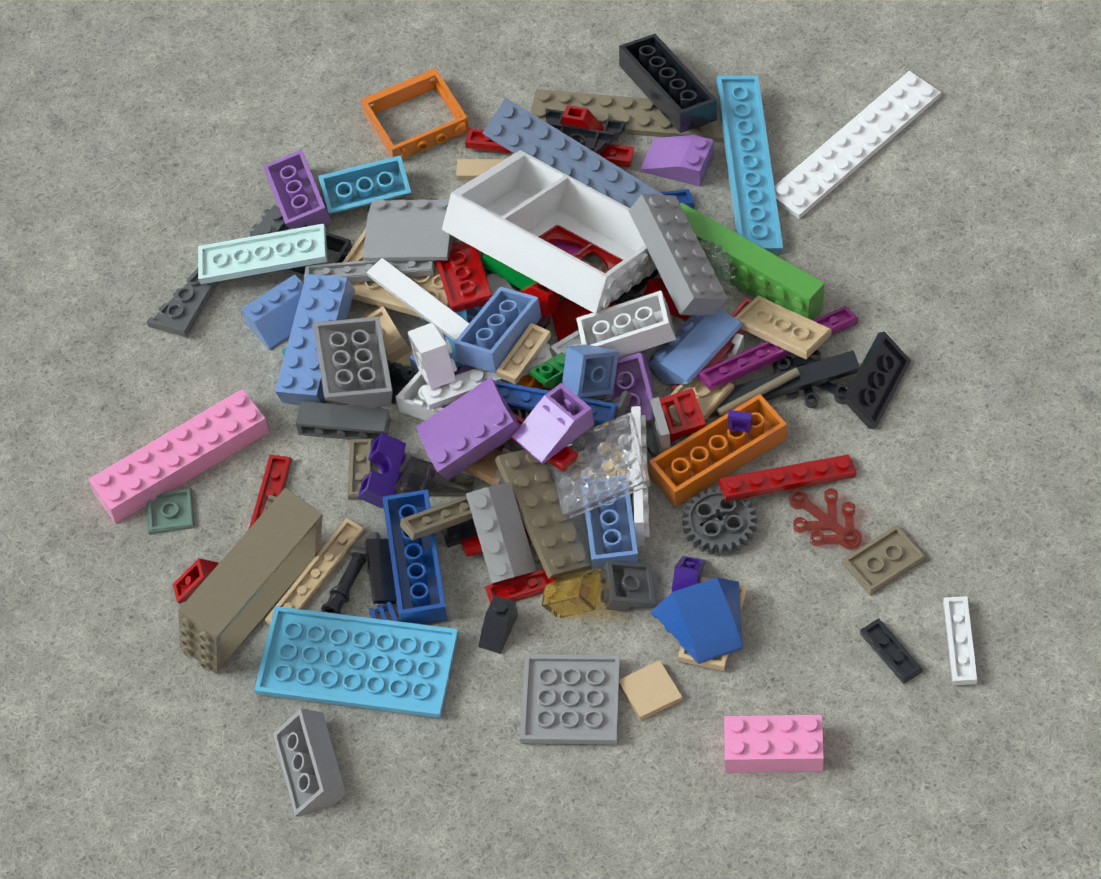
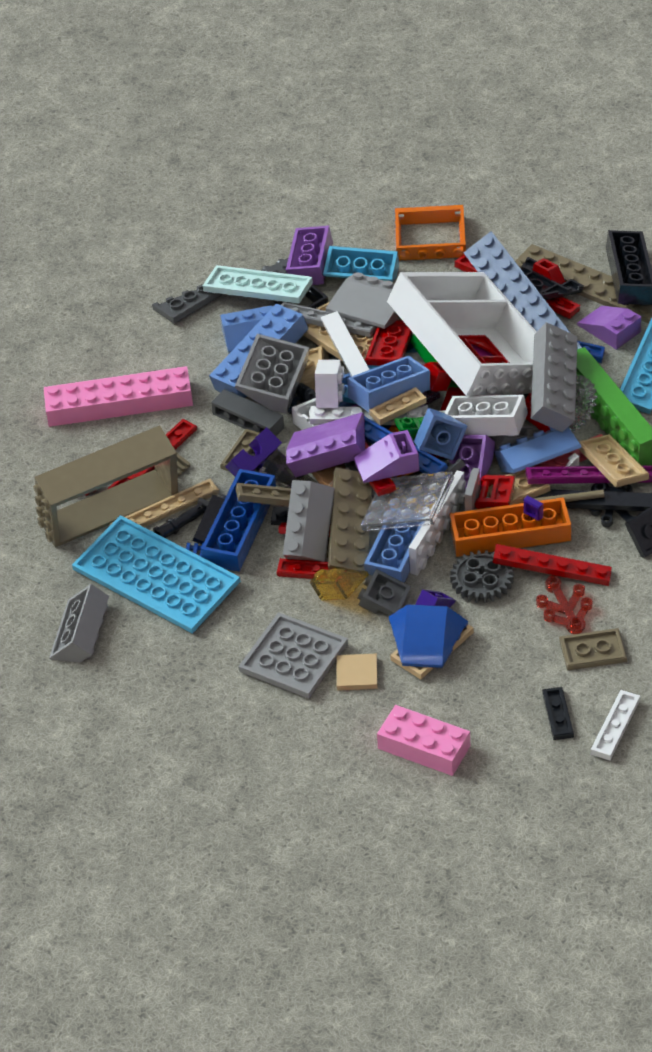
camera: 25 degrees right, 10 degrees down
(170, 511) = (91, 432): sand green tile -> none
(498, 624) = (272, 585): black slope -> none

